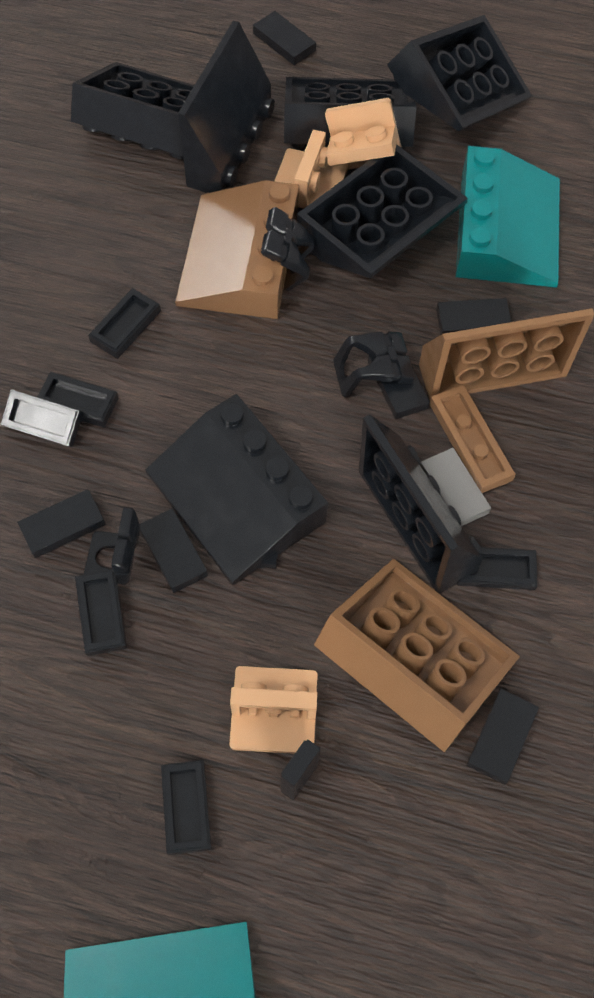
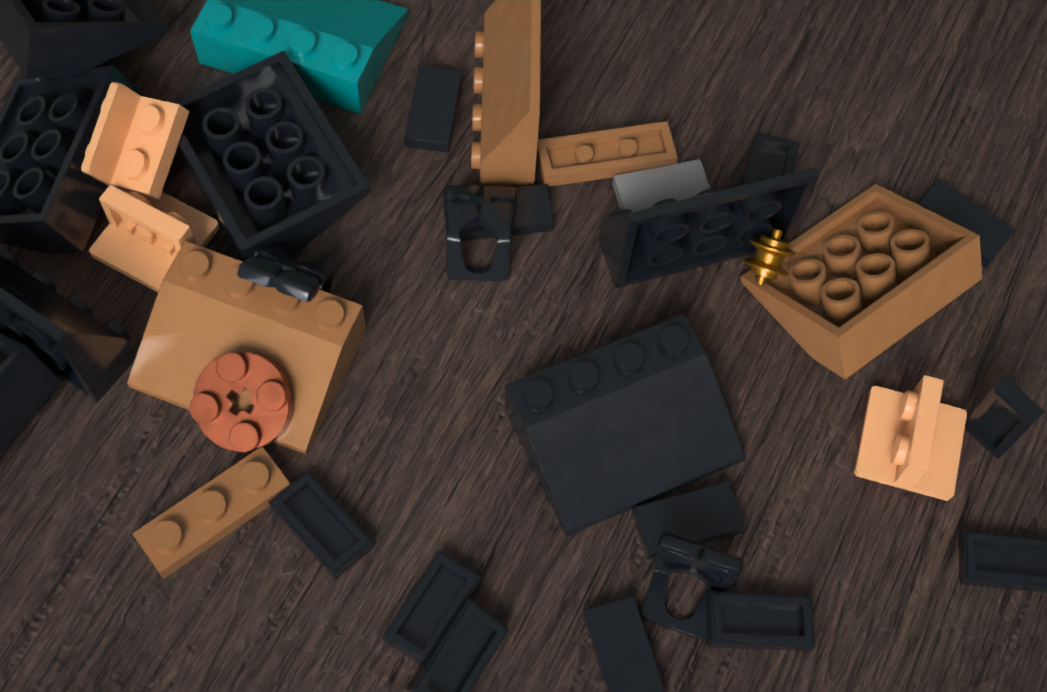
camera: 80 degrees left, 0 degrees up
(122, 261) = (211, 512): none -> medium nougat plate
(195, 252) = (214, 403): none -> plate
(405, 564) = (769, 256): none -> pearl gold wheel

